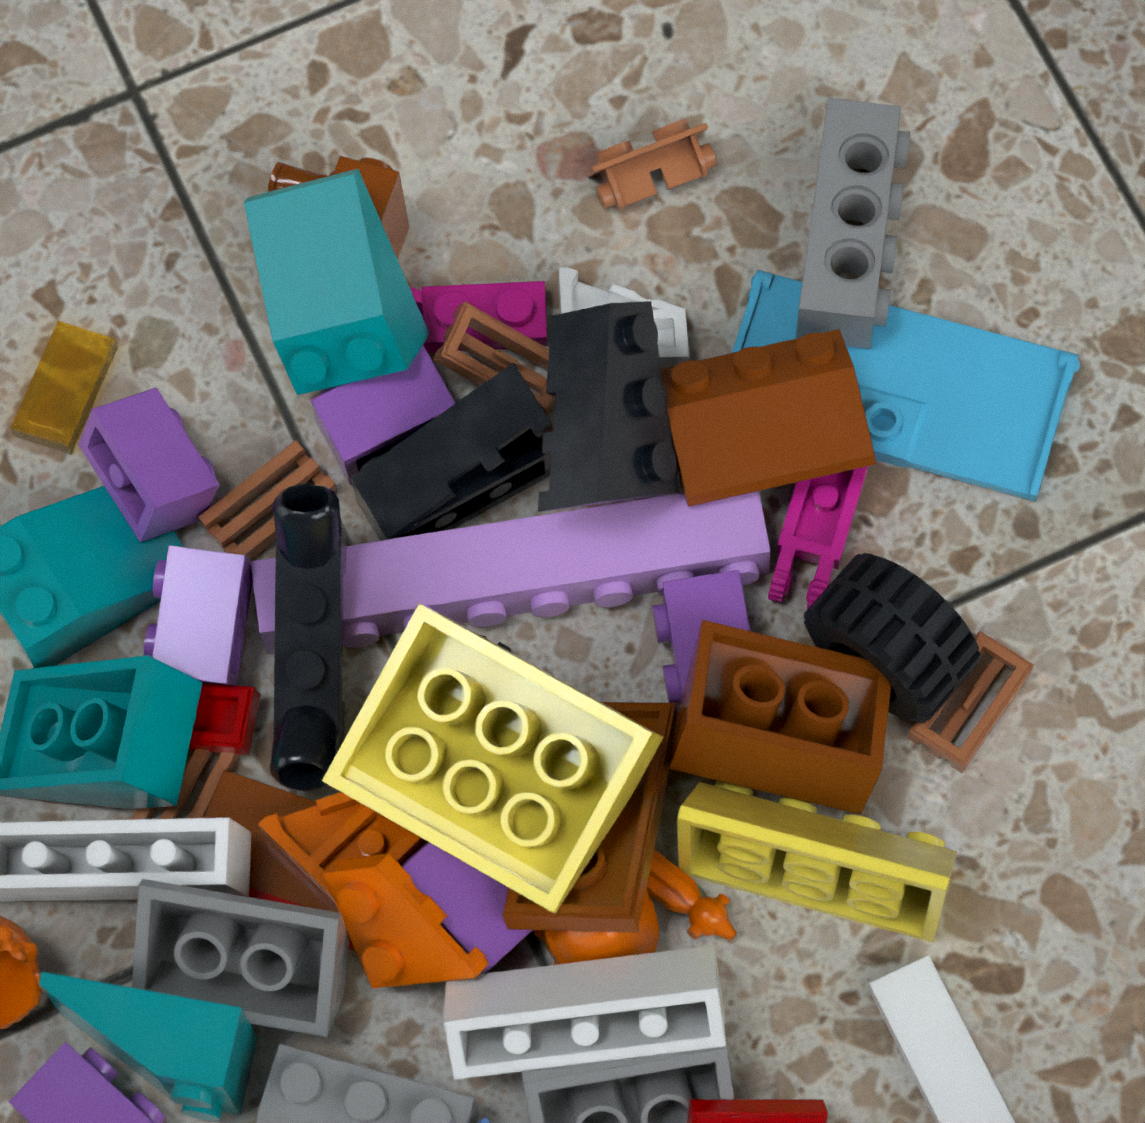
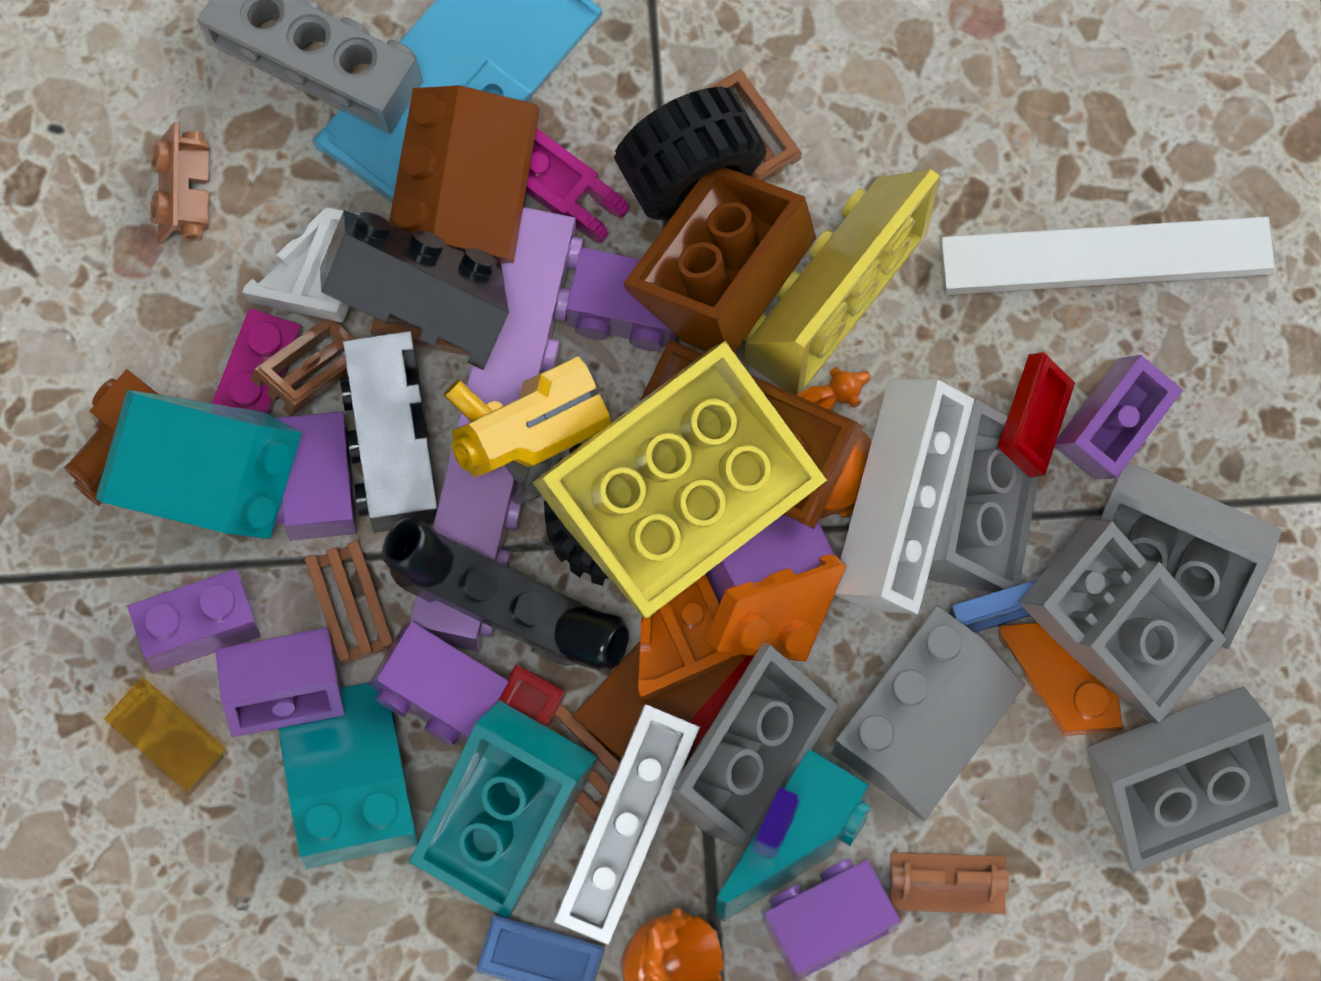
camera: 75 degrees left, 5 degrees up
(133, 996) = (776, 823): none -> dark purple tile
(185, 360) = (193, 621): none -> medium lavender brick
(499, 590) = (531, 430): none -> yellow piece

